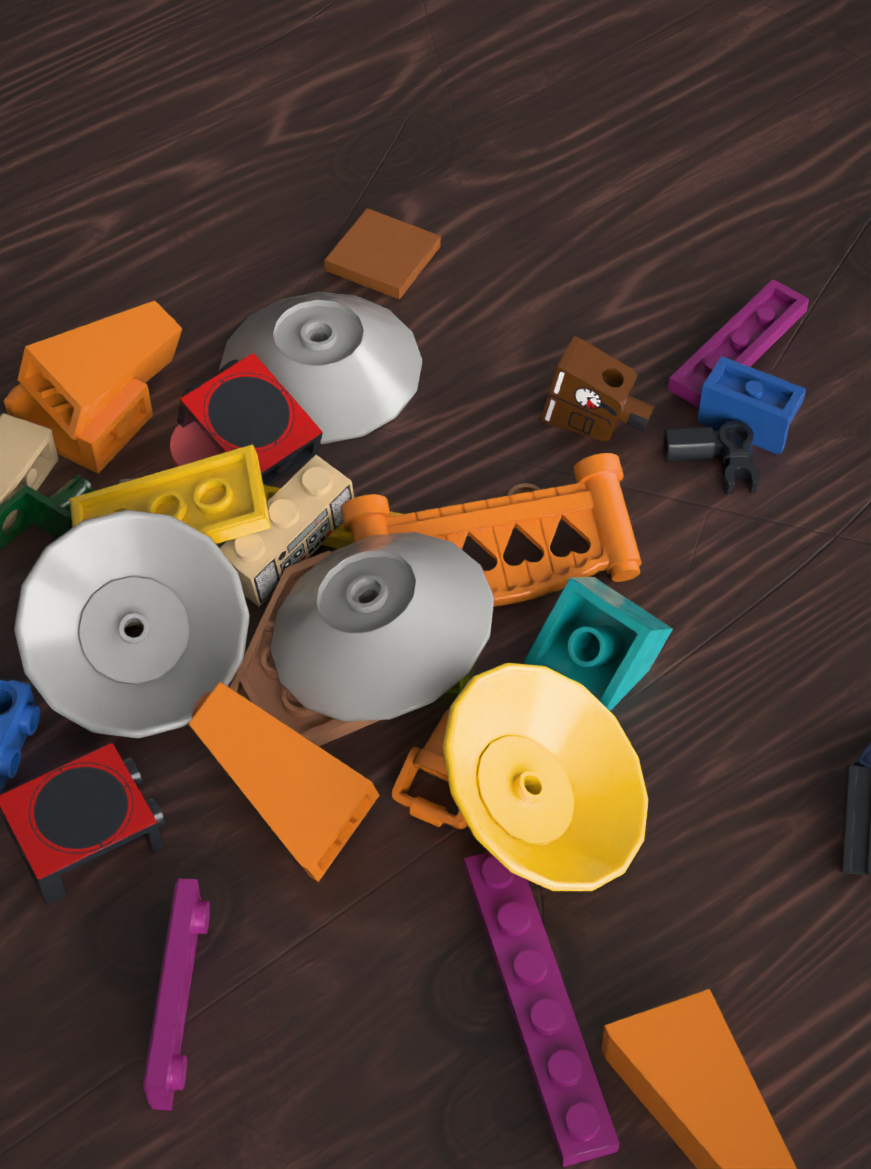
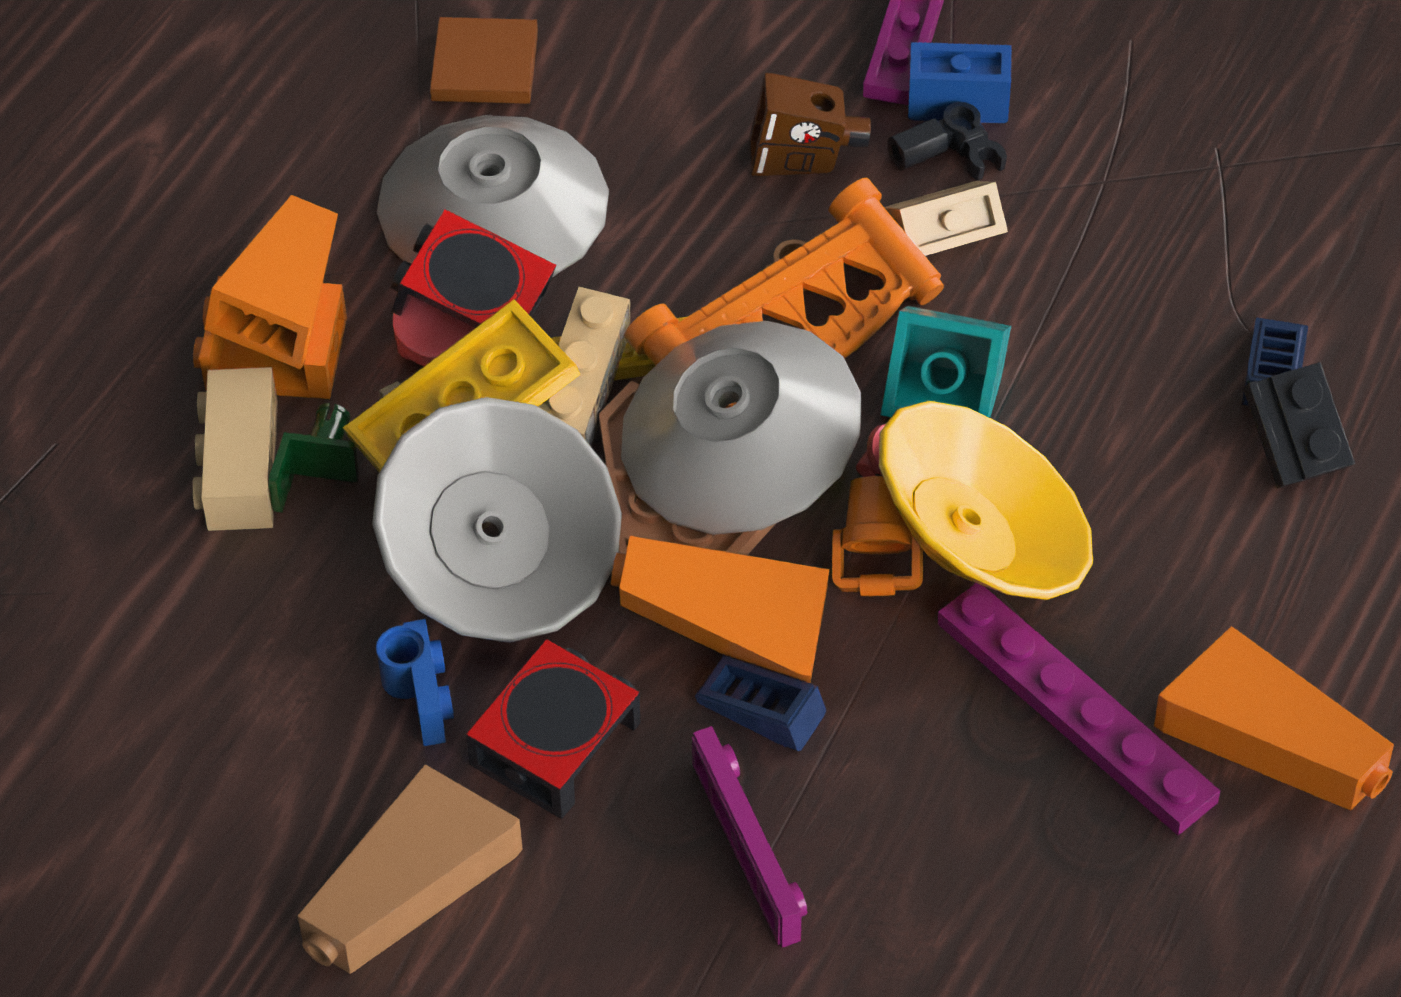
camera: 25 degrees left, 0 degrees up
(285, 901) = (792, 718): none -> dark blue slope
(678, 516) = (951, 216): none -> tan panel

